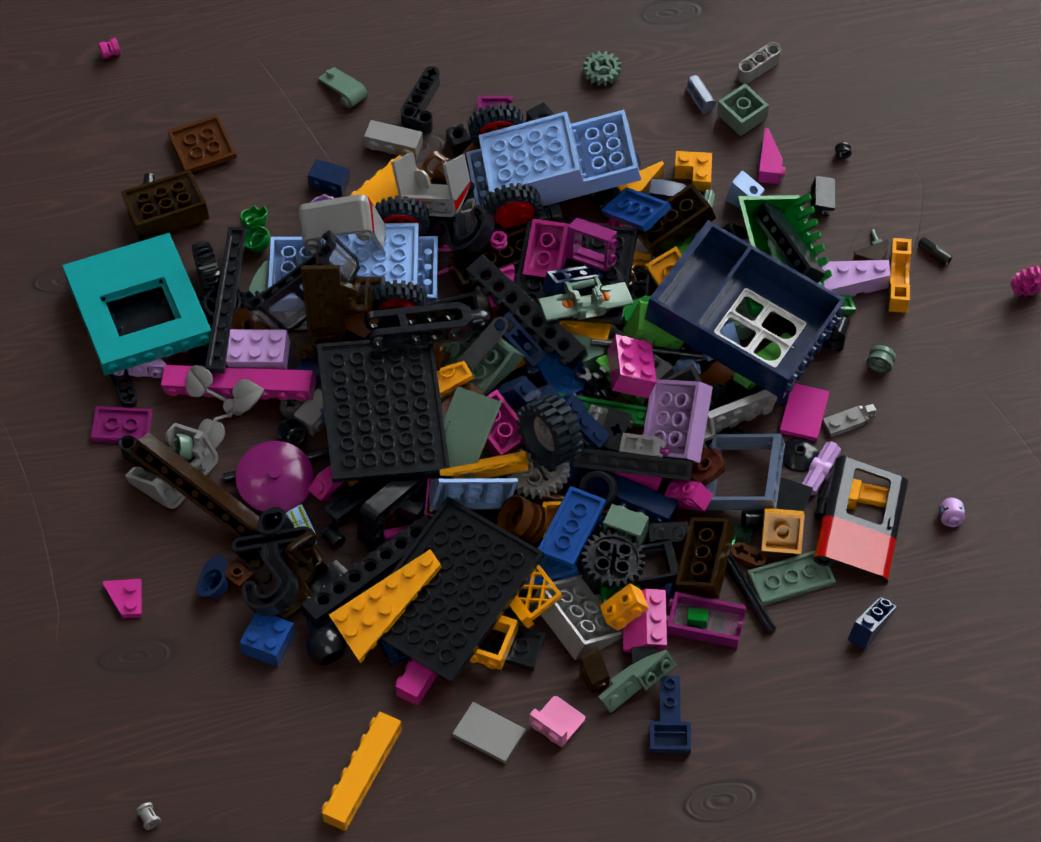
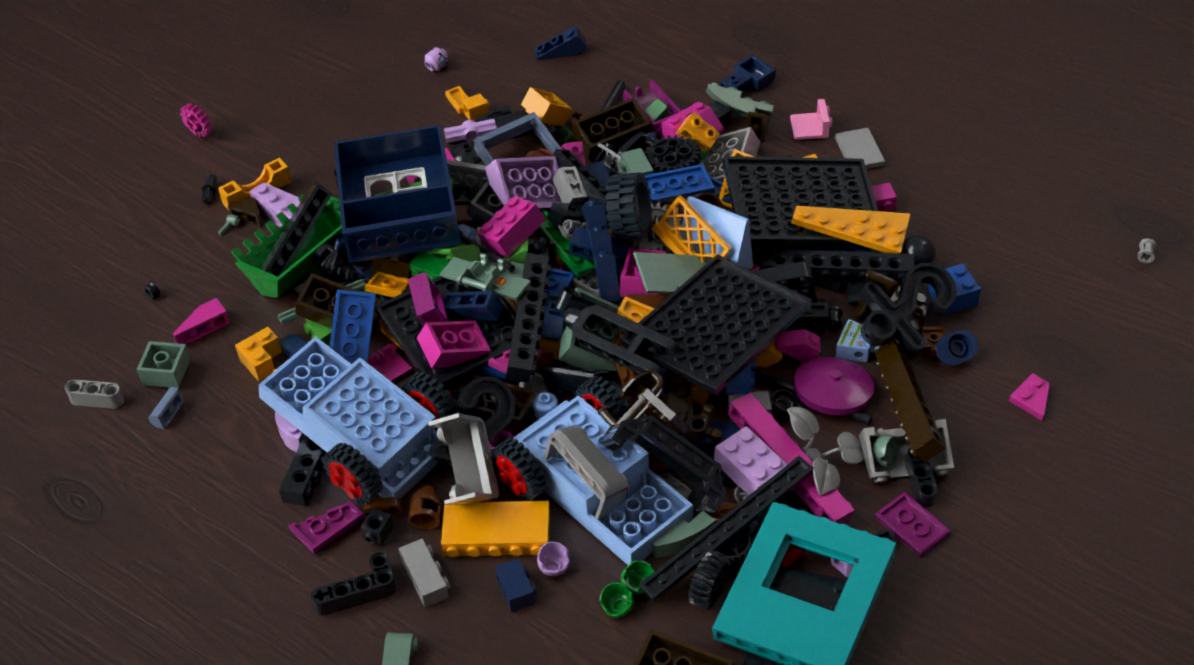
camera: 130 degrees left, 10 degrees down
(362, 771) = (968, 179): light orange brick -> none
(451, 289) = (544, 404): none -> light blue head
(602, 68) = (195, 489): sand green gear -> none
(743, 186) = (254, 302): light blue torso -> none
(790, 578) = (575, 97): sand green tile -> none
(823, 195) = (213, 272): hinge -> none
(853, 539) = (511, 85): piece -> none

